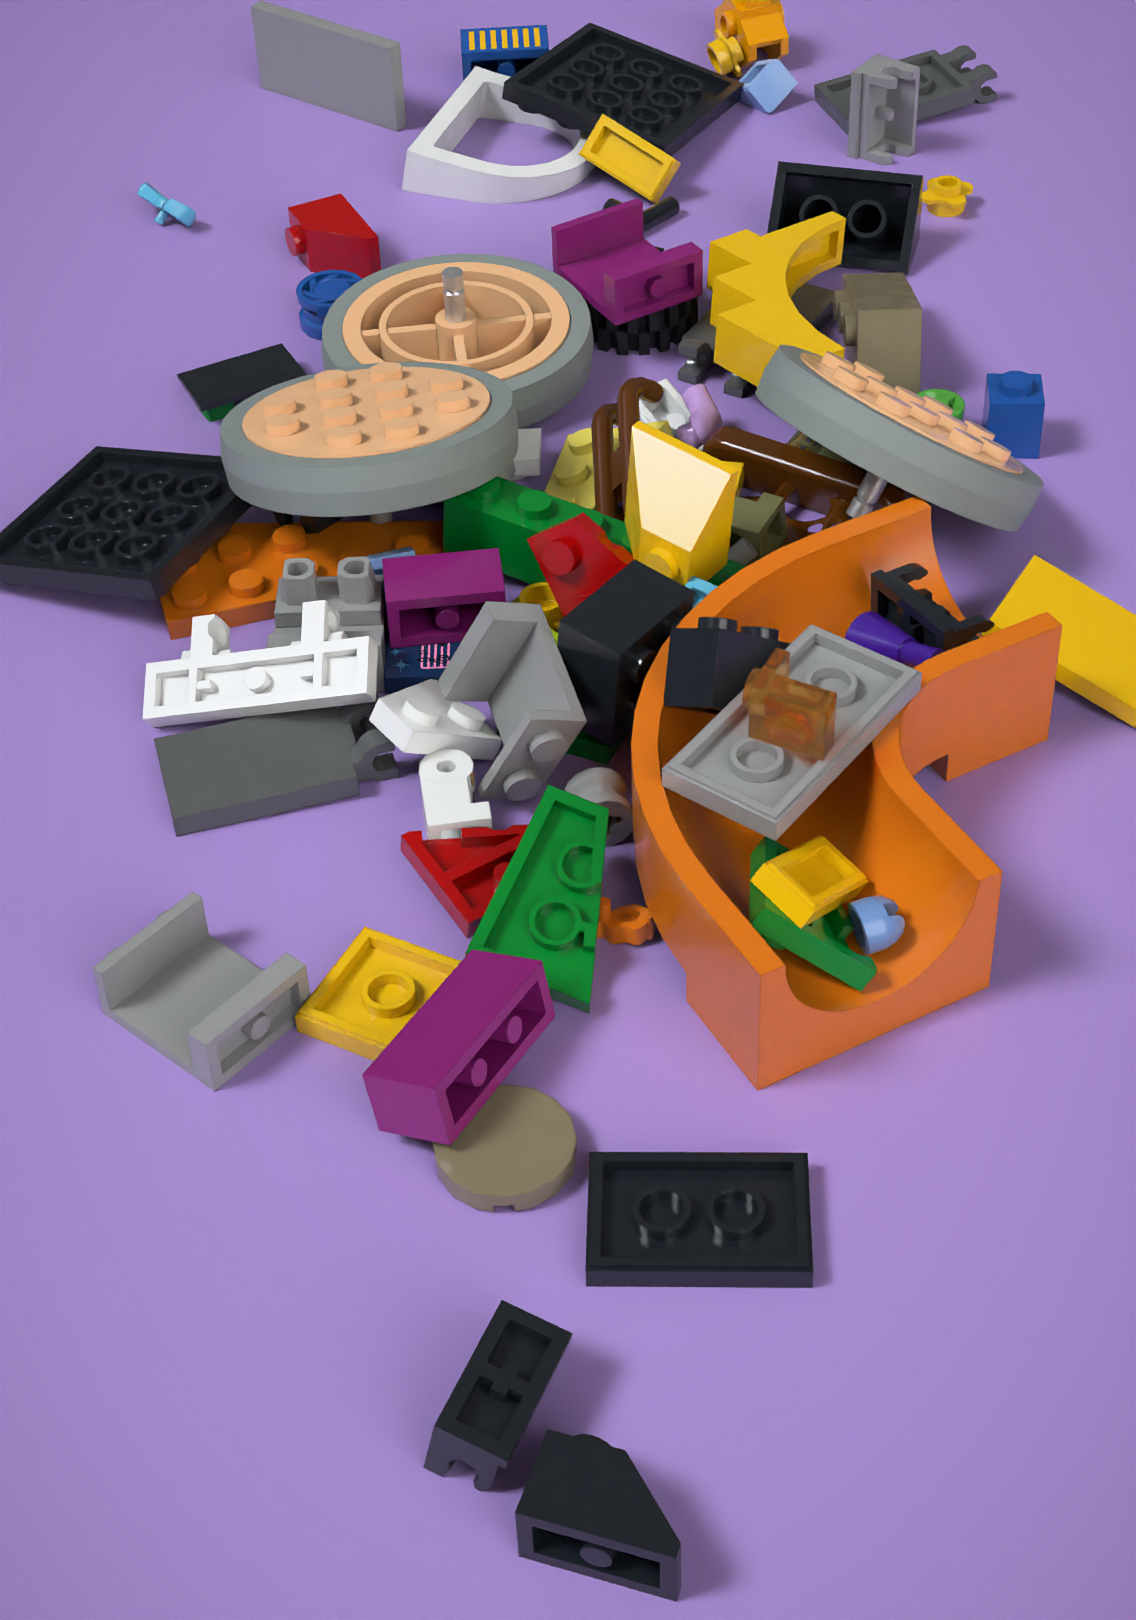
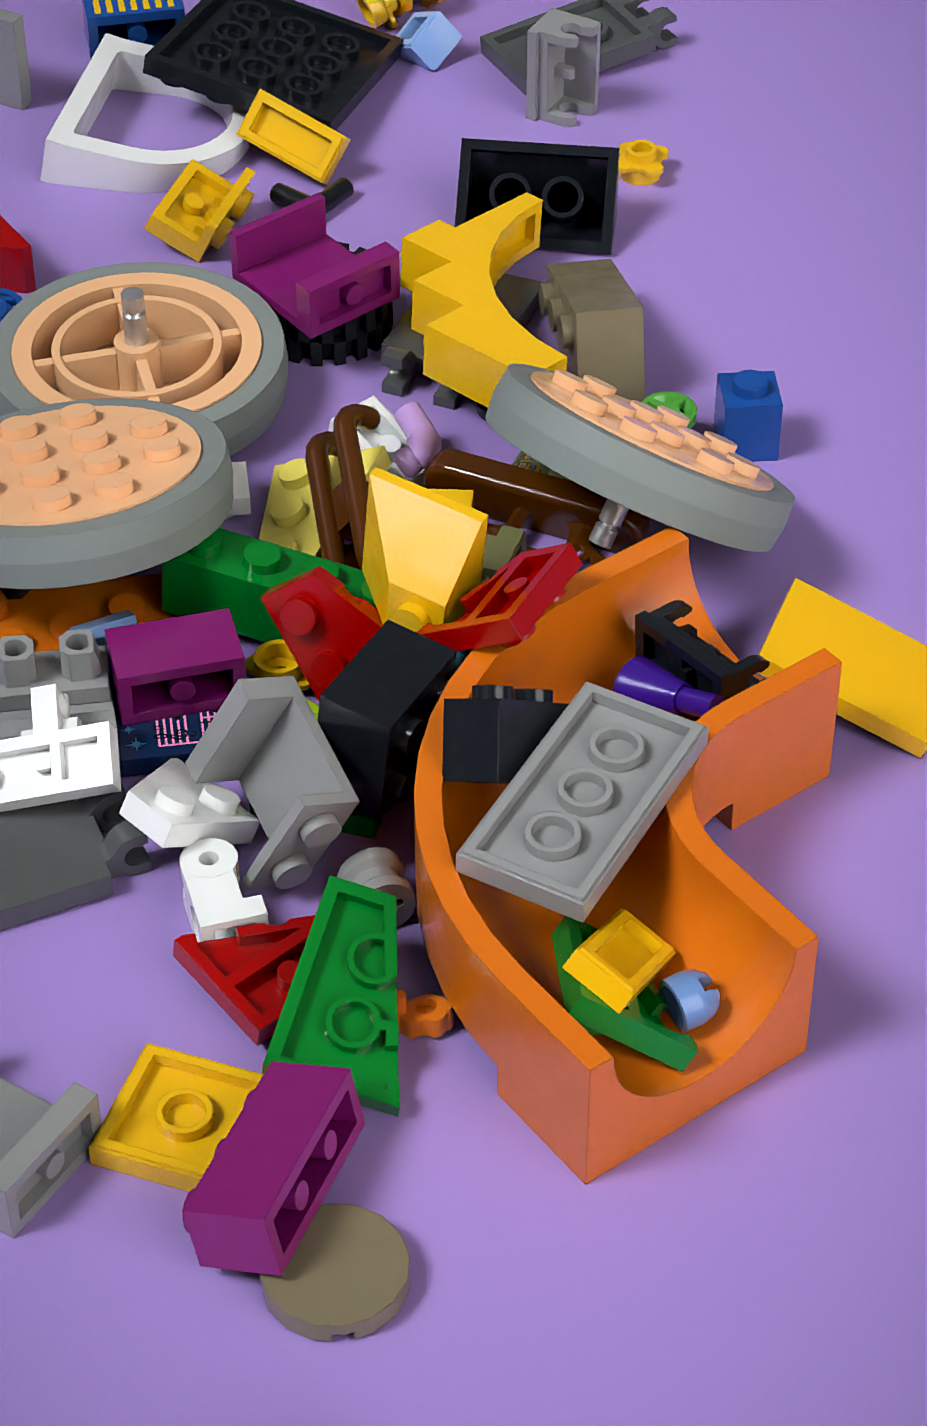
camera: 10 degrees left, 0 degrees up
(530, 212) = (199, 210): none -> yellow bracket
(699, 1220) = (547, 1329): black tile -> none
(749, 552) = (510, 601): none -> red wing
(788, 710) = (582, 783): clear orange bracket -> none

